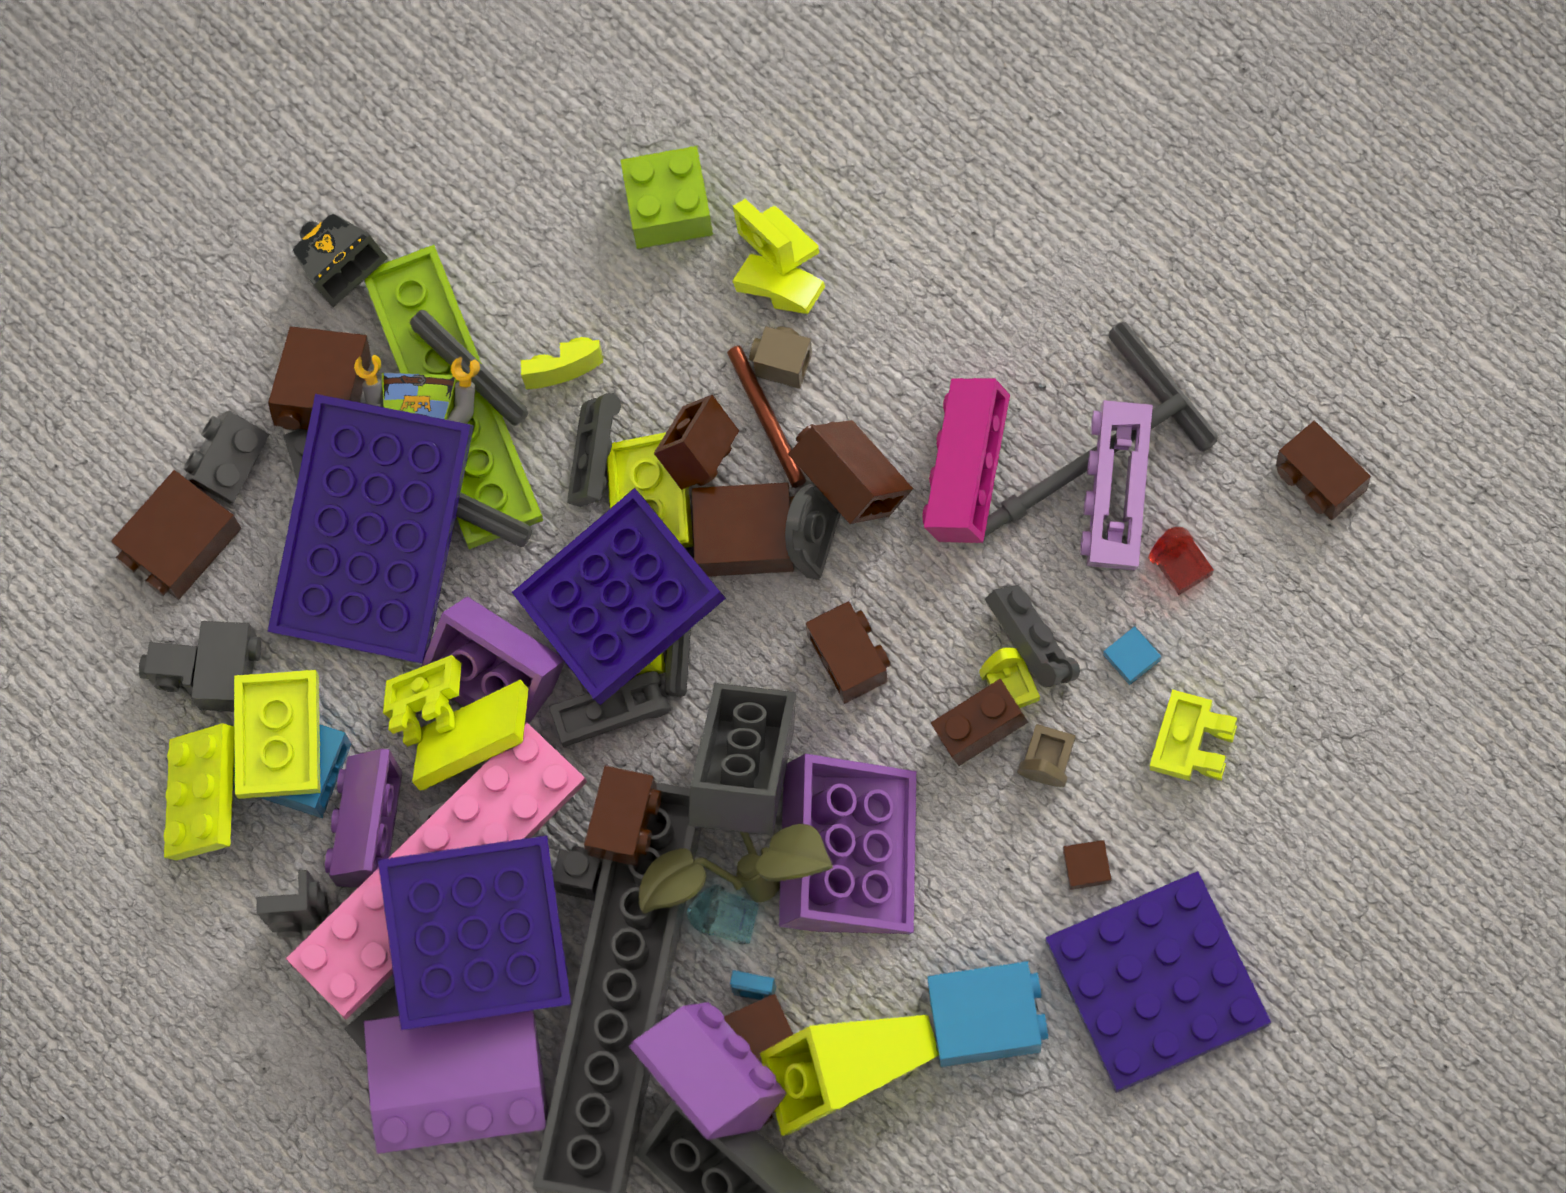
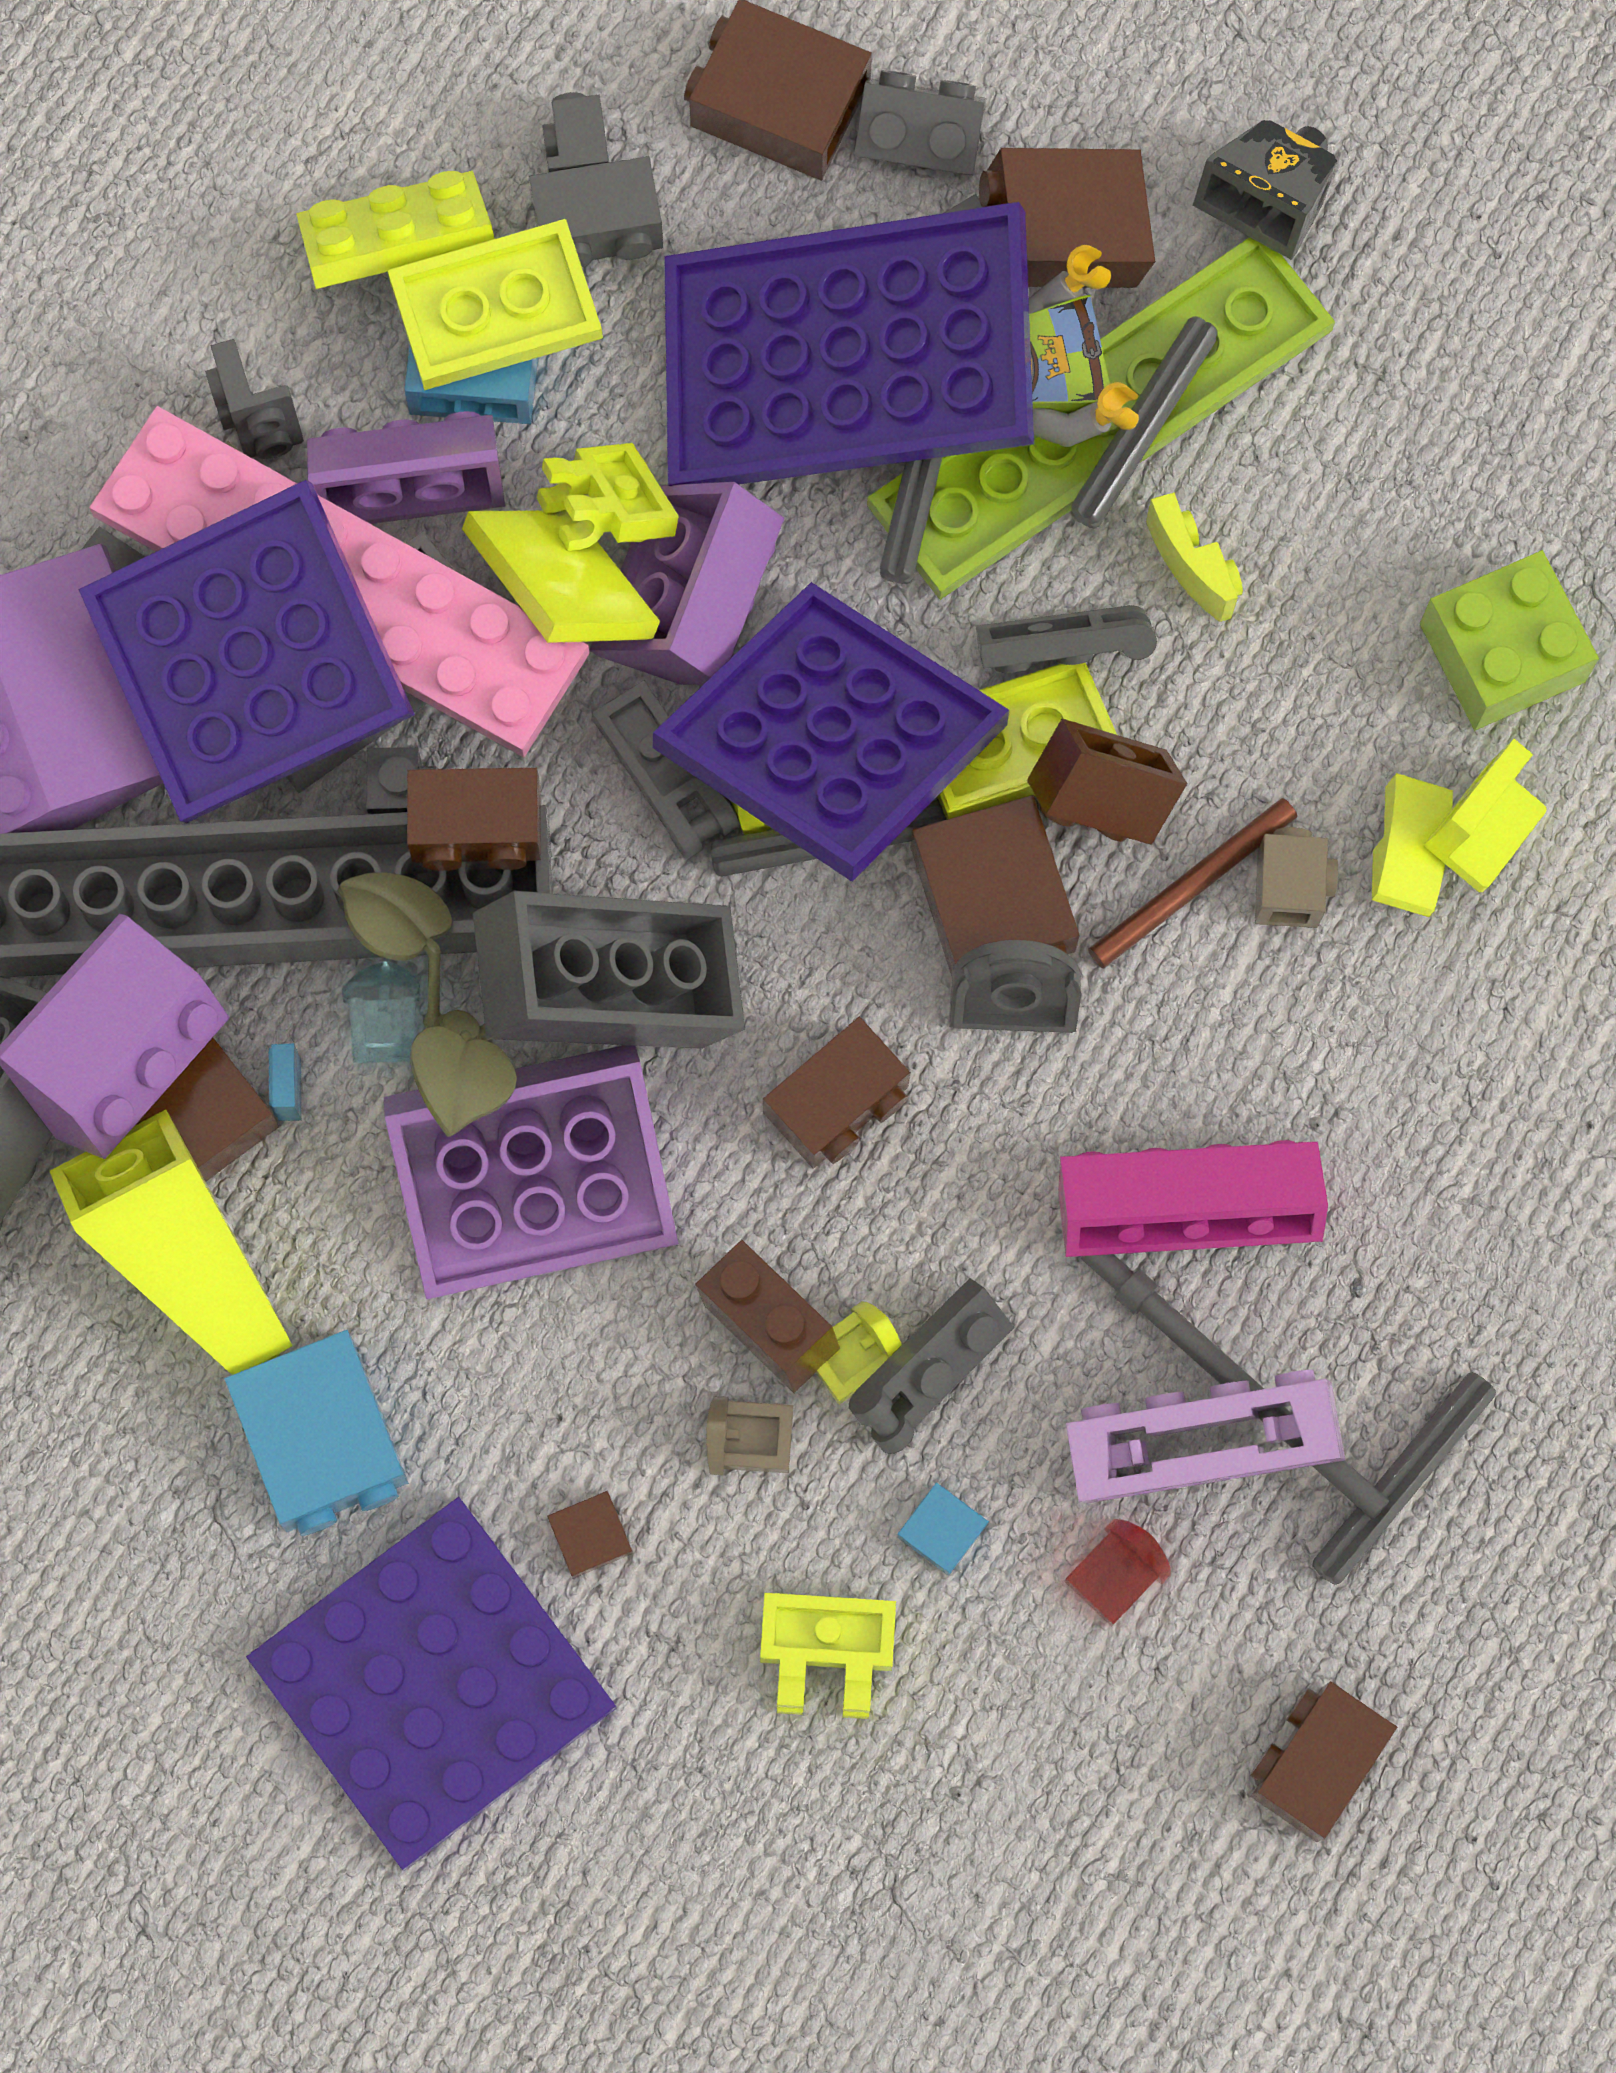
camera: 65 degrees right, 5 degrees up
(850, 471) = (1120, 1022): reddish brown brick -> none

